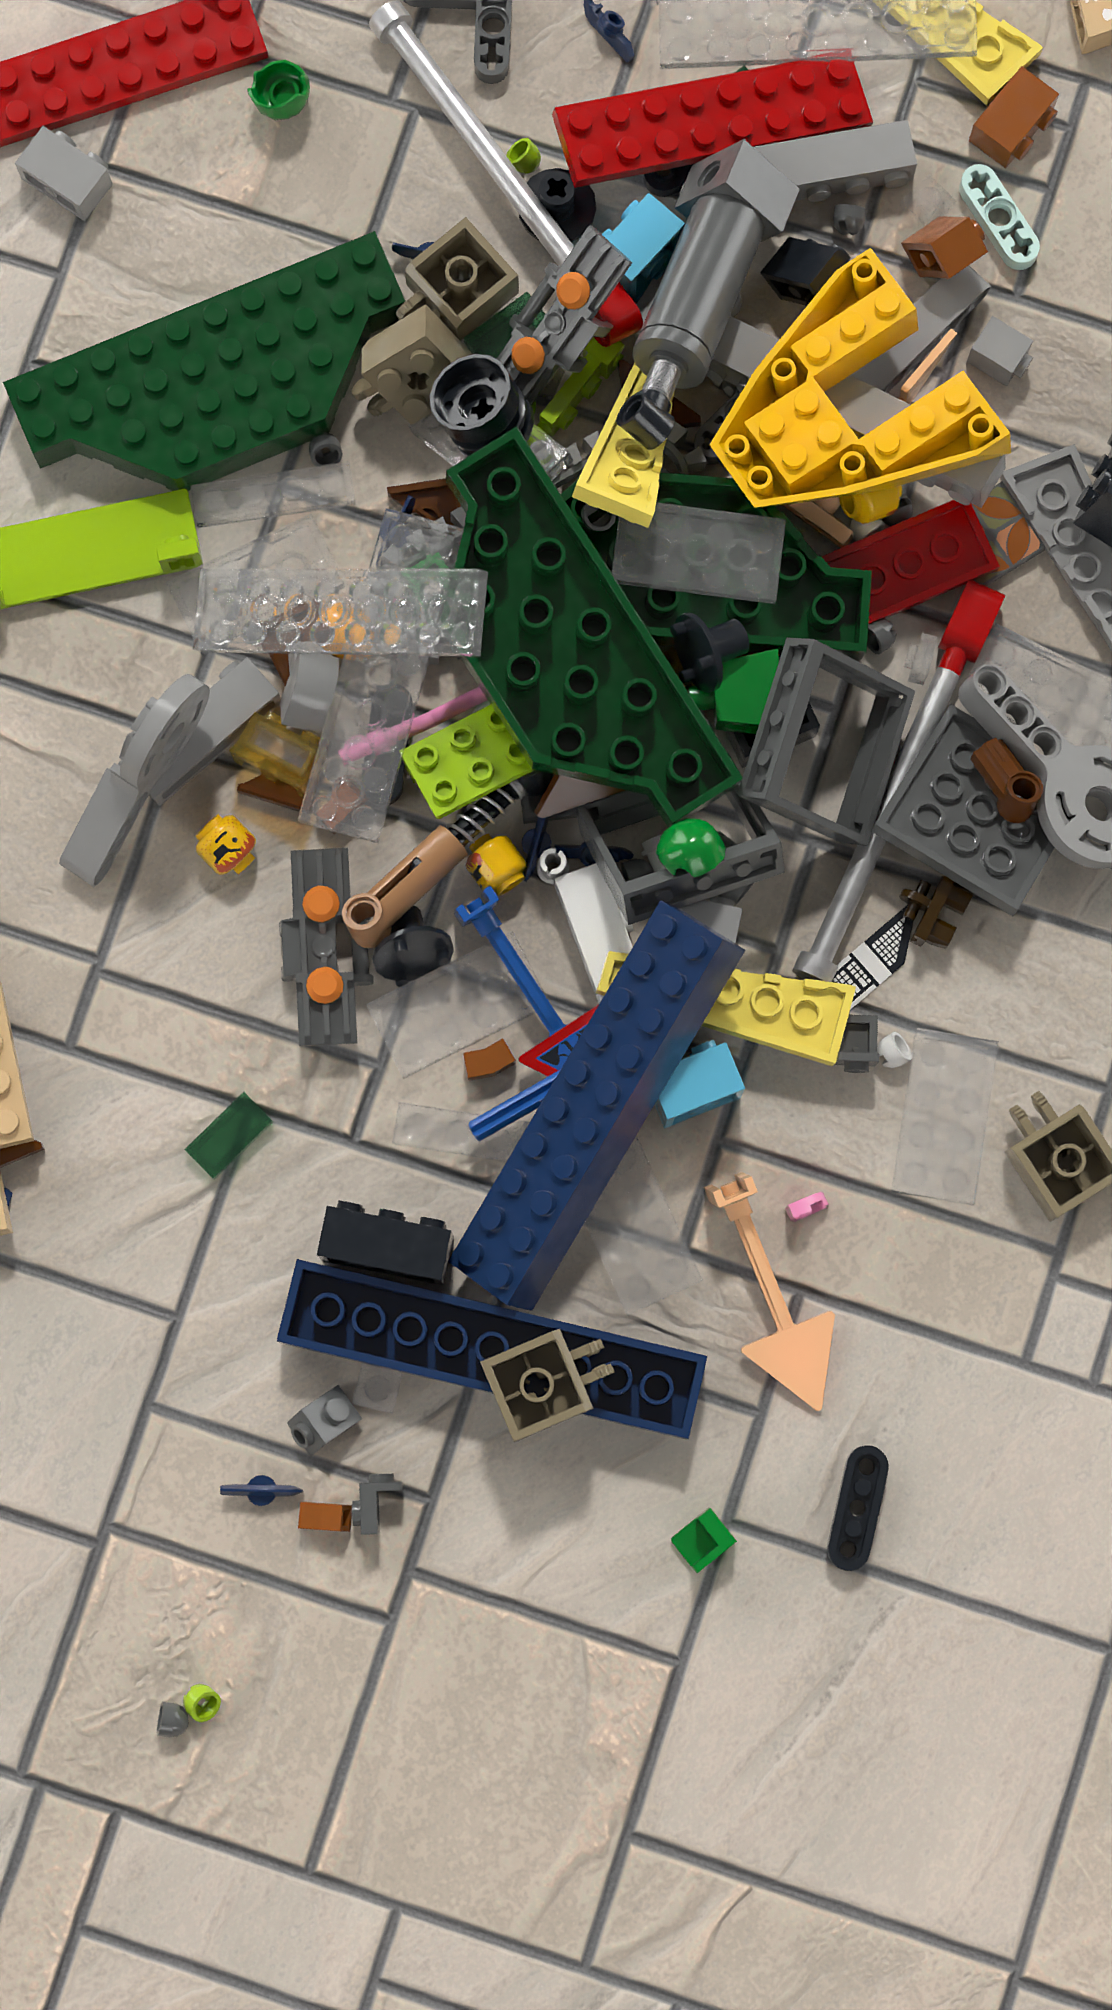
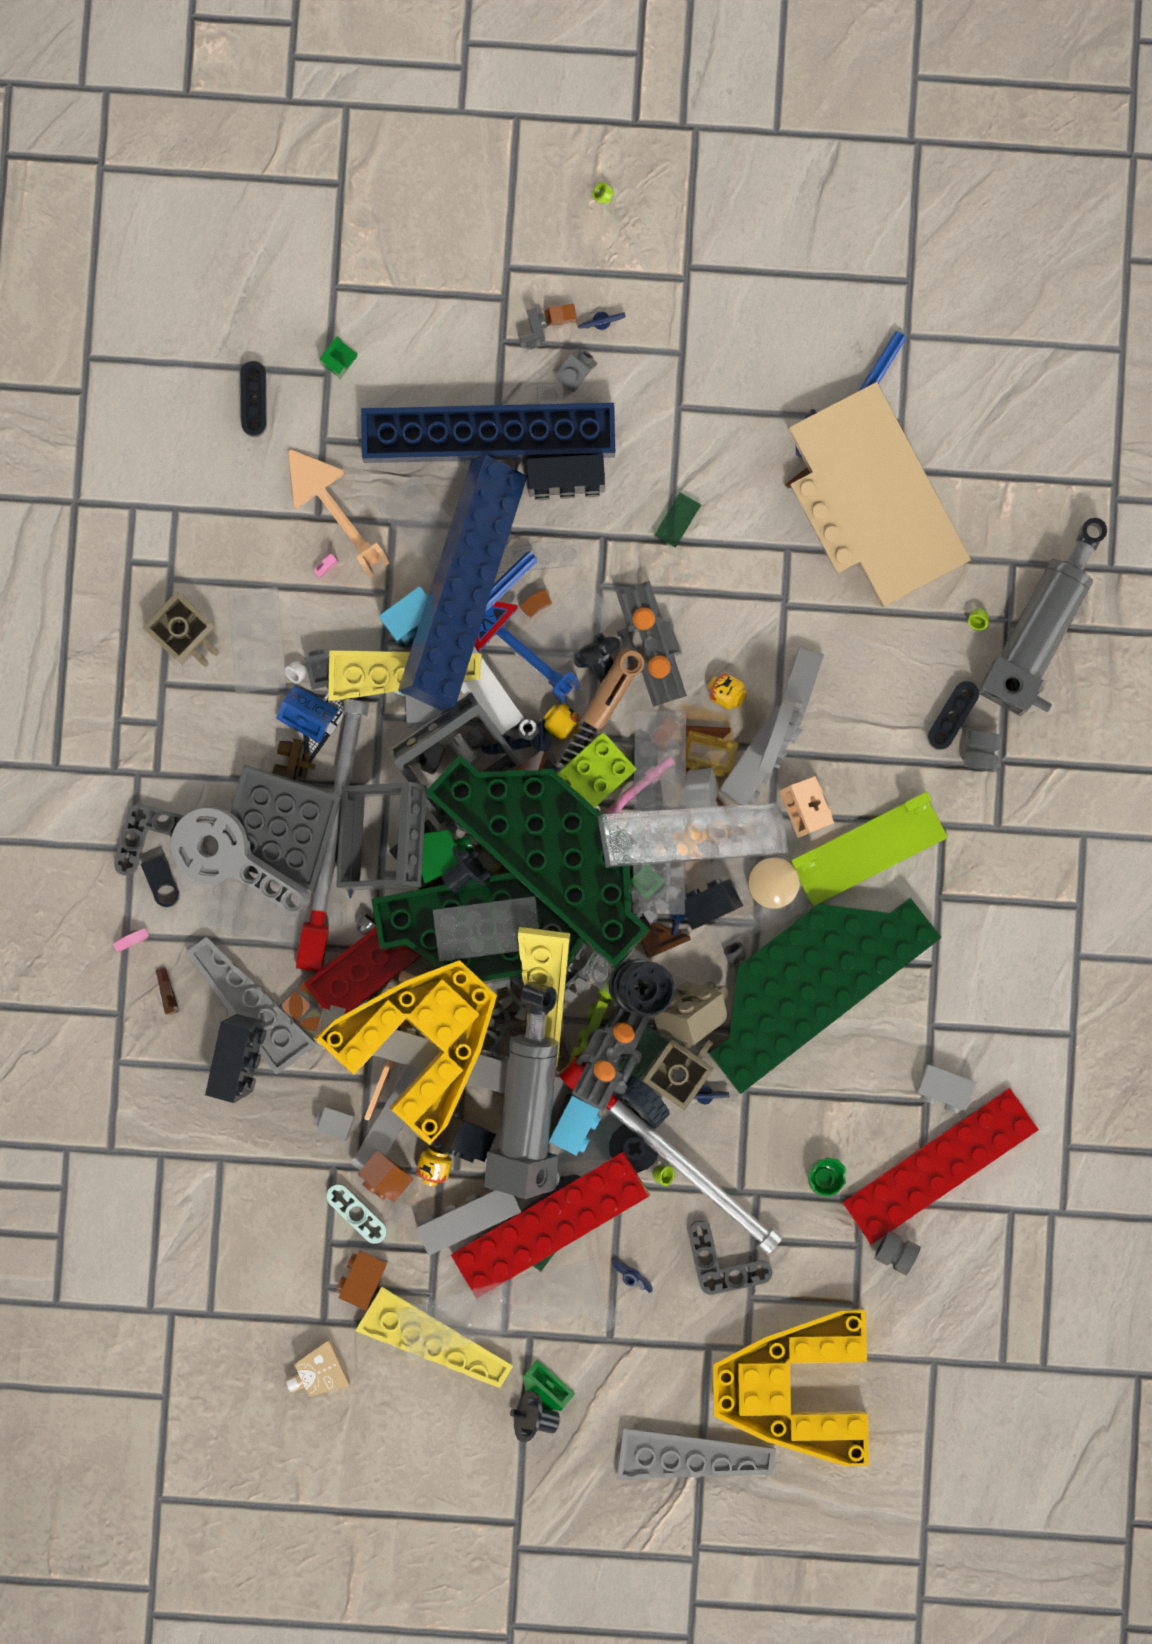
camera: 165 degrees right, 5 degrees up
(152, 634) = (806, 806): none -> light nougat brick
(171, 1720) = (617, 179): dark grey hinge -> none
(236, 531) = (773, 883): none -> tan dish
(339, 525) = (711, 903): none -> black brick
(522, 250) = (644, 1102): none -> black wheel
(549, 1359) = (453, 429): dark tan hinge -> none
(690, 846) = (445, 743): green hair -> none
(849, 218) = (450, 1187): dark grey hinge -> none
(866, 236) = (434, 1166): none -> yellow head
(893, 981) = (306, 713): none -> blue panel
(1007, 780) = (270, 848): reddish brown piece -> none

